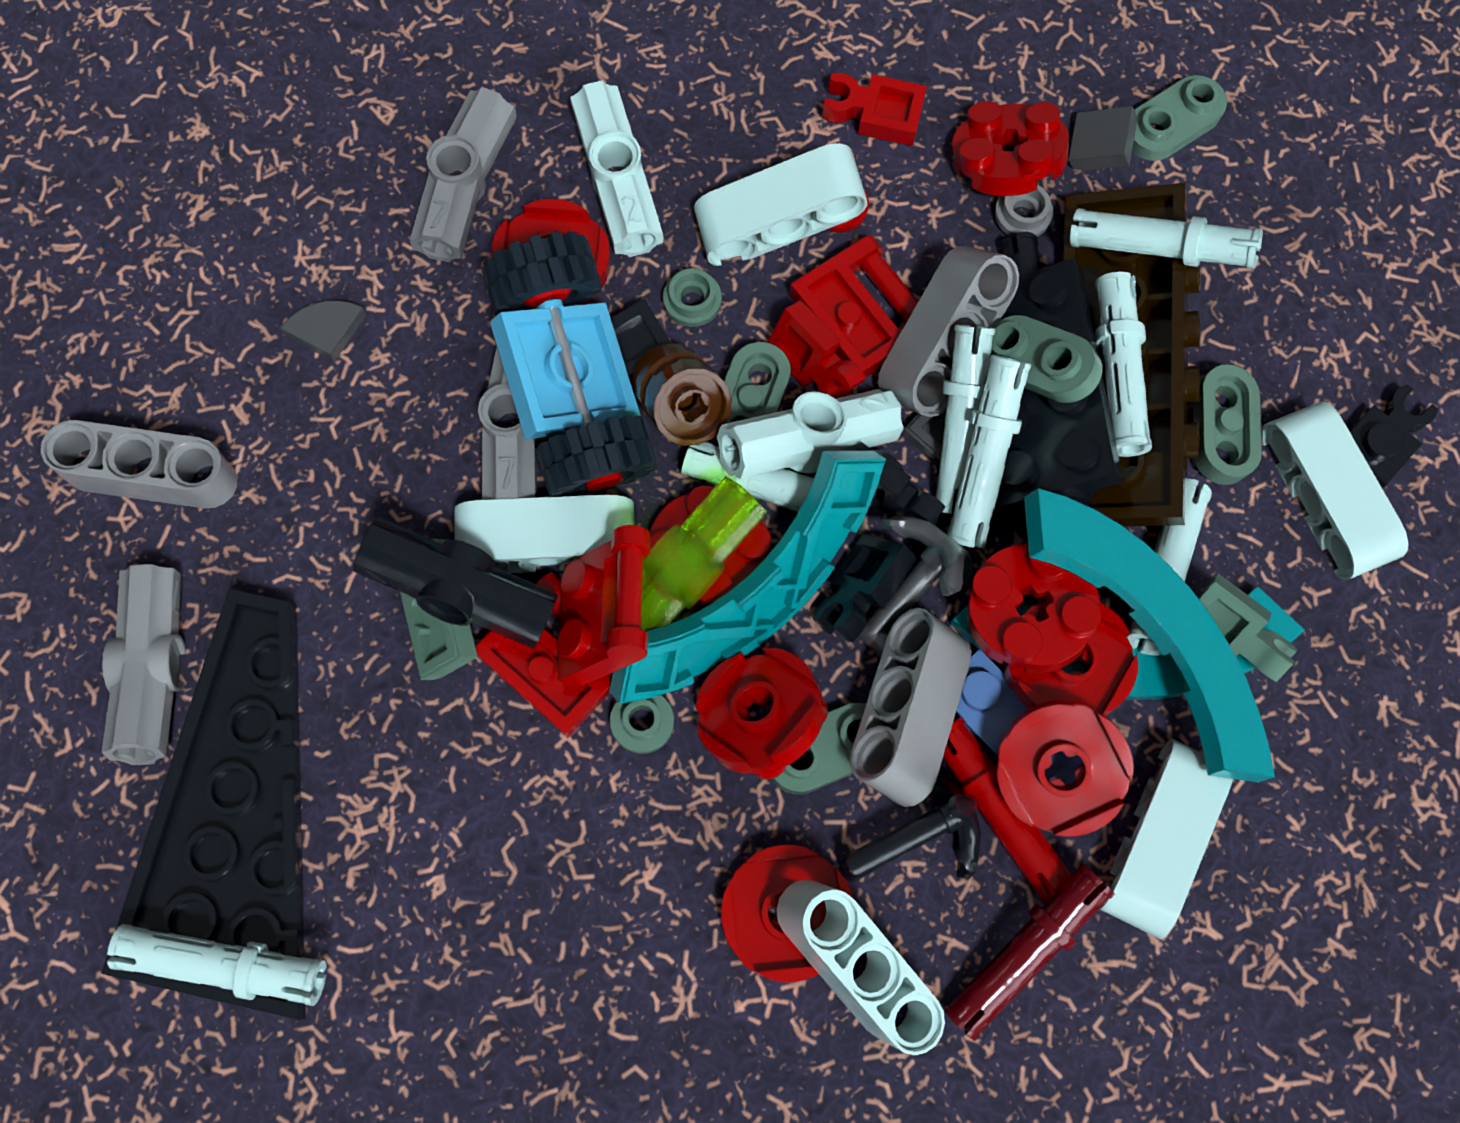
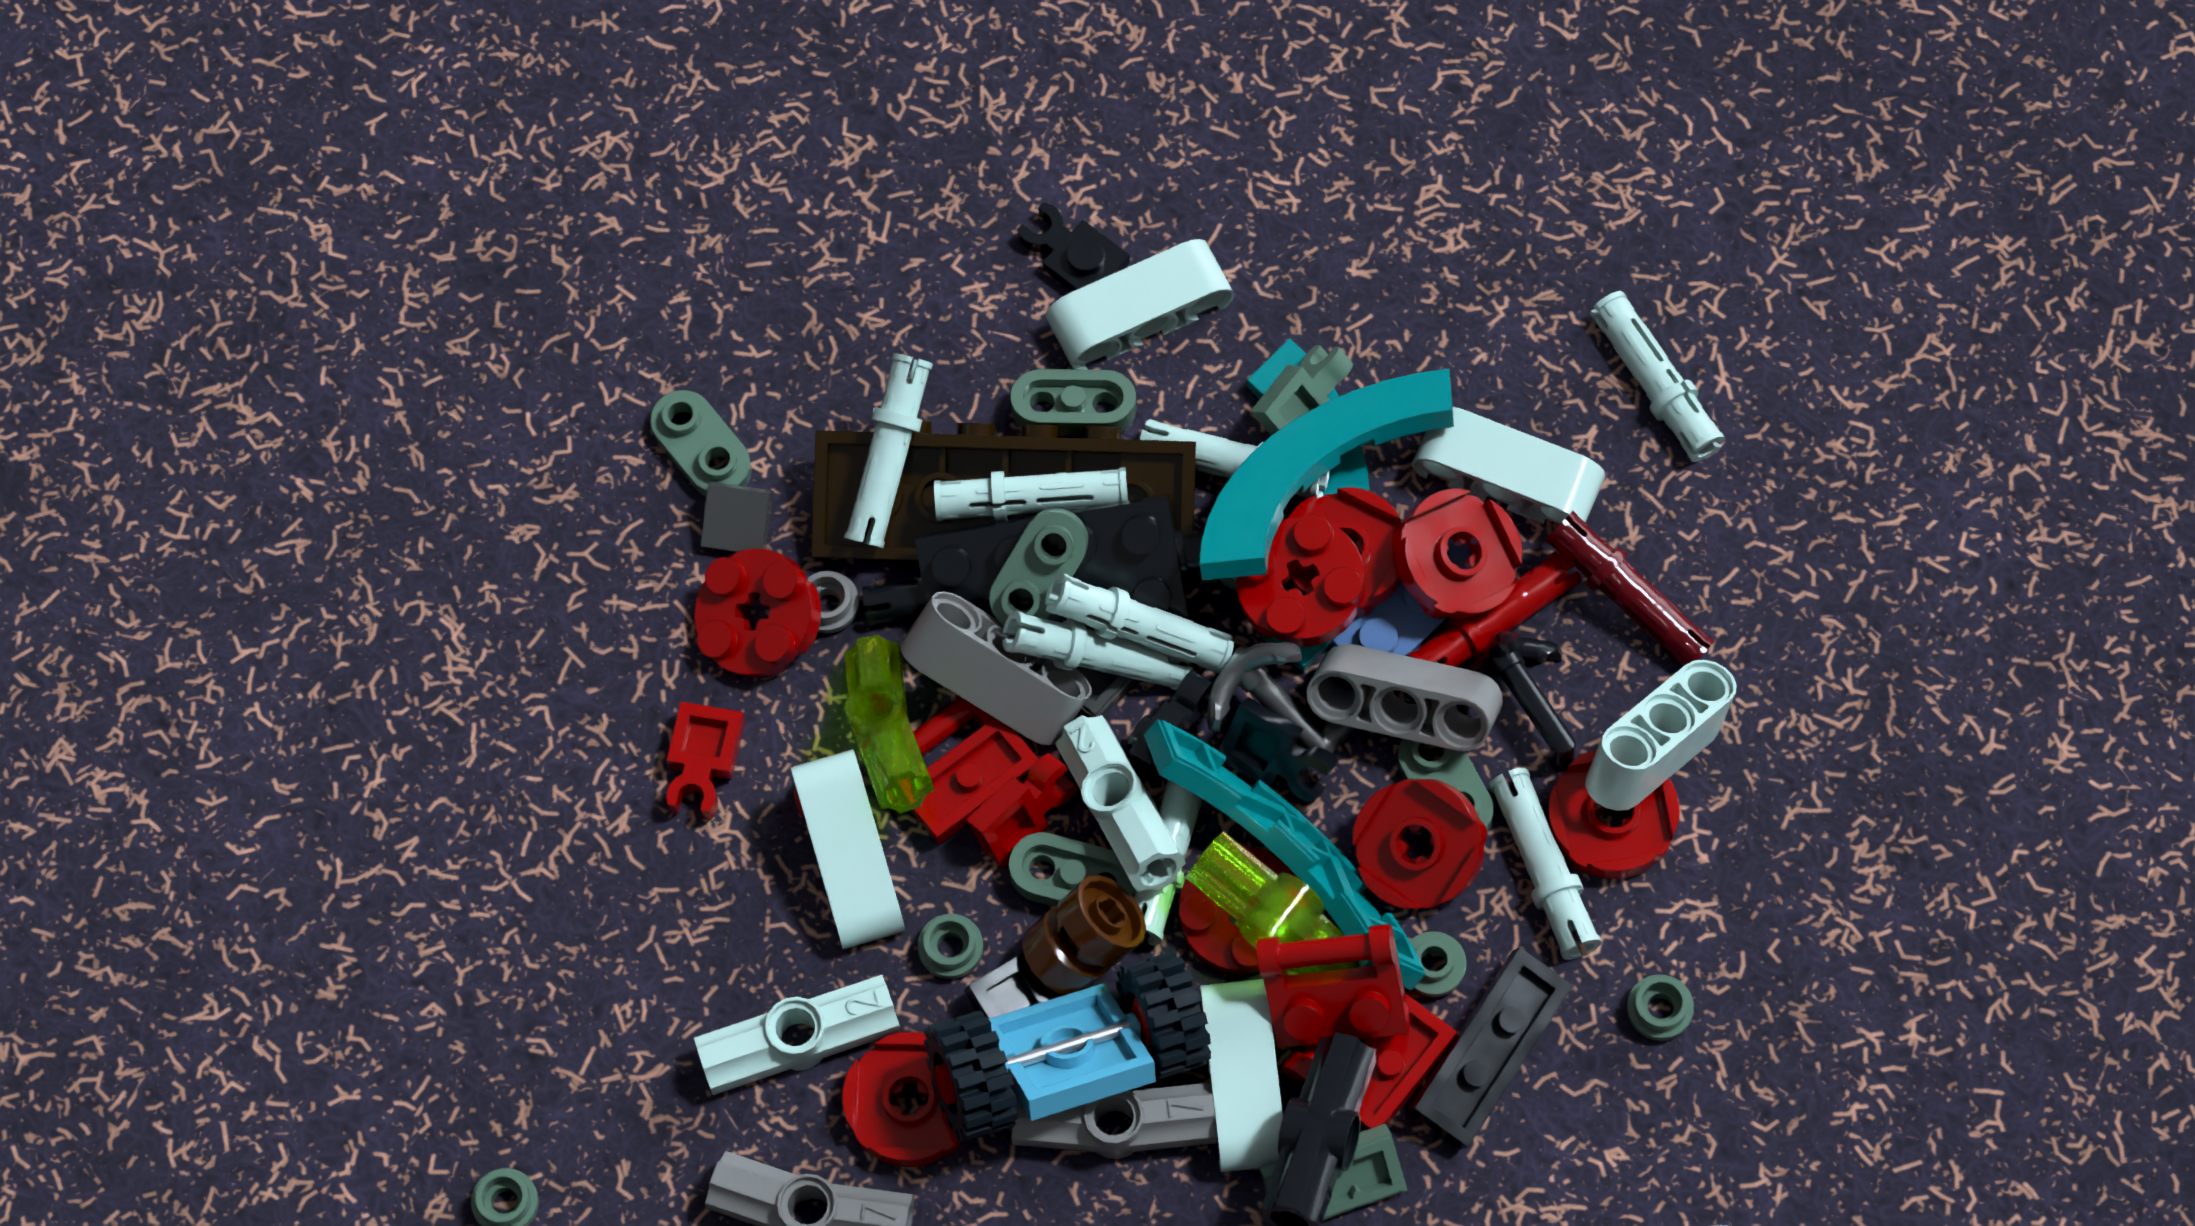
camera: 85 degrees left, 5 degrees down
(549, 767) = (1490, 1048): none -> black plate
(558, 944) = (1666, 988): none -> sand green plate
(736, 839) = (1555, 888): none -> light aqua pin
(889, 232) = (881, 724): none -> clear neon green piece
(1259, 1020) = (1670, 394): none -> light aqua pin

